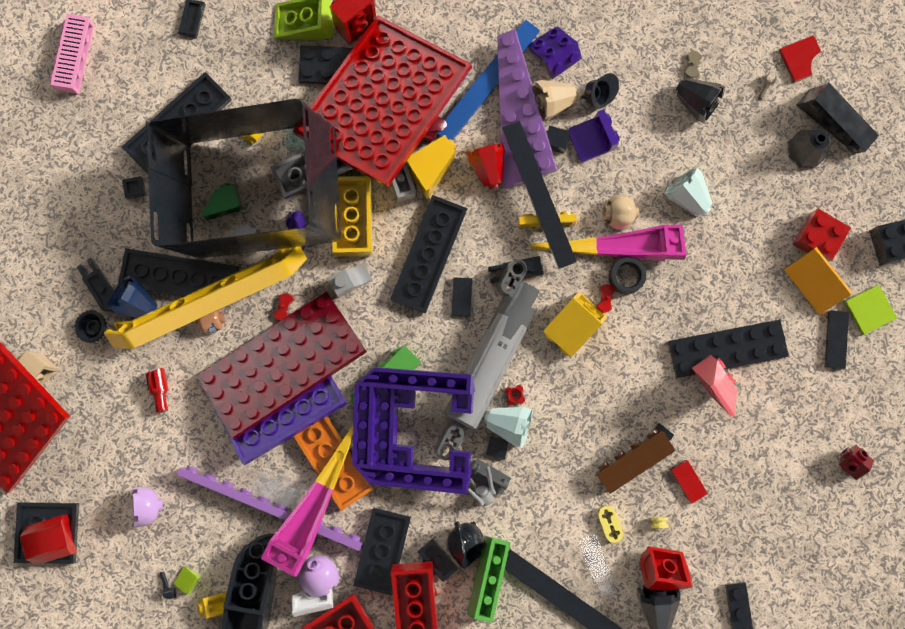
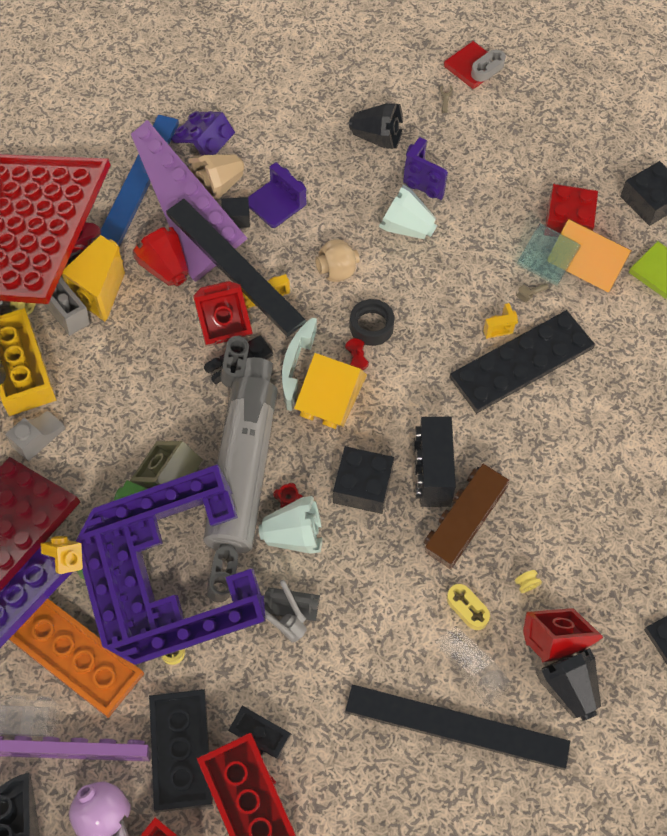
camera: 15 degrees left, 20 degrees down
(297, 534) = (51, 762): dark pink plate -> none
(345, 390) = (66, 553): none -> yellow bracket
(428, 254) = (125, 377): black plate -> none
(435, 343) = (165, 463): none -> olive slope
(461, 297) = (182, 409): black tile -> none
(465, 543) = (289, 694): black helmet -> none
(488, 579) = (336, 730): bright green brick -> none
(497, 447) = (288, 565): black tile -> none
(516, 233) = (222, 312): none -> red slope
(570, 272) = (303, 339): none -> light aqua slope
(572, 404) = (363, 480): none -> black brick
(601, 90) = (267, 150): black piece -> none
(629, 412) = (434, 462): none -> black brick
(647, 244) = (384, 280): dark pink plate -> none
(689, 481) = (543, 522): red tile -> none
(693, 59) = (357, 98): dark tan piece -> none
(716, 160) = (423, 174): none -> dark purple bracket
(717, 383) = (523, 393): coral slope -> none
(722, 314) = (501, 325): none -> yellow bracket
(755, 292) = (526, 293): none -> dark tan hand
(787, 267) = (548, 254): none -> clear light blue tile
(809, 148) = (518, 135): black cone -> none
(817, 71) = (491, 67): none -> light grey beam
(836, 339) = (640, 311): black tile -> none
(838, 117) = (534, 100): black wedge -> none

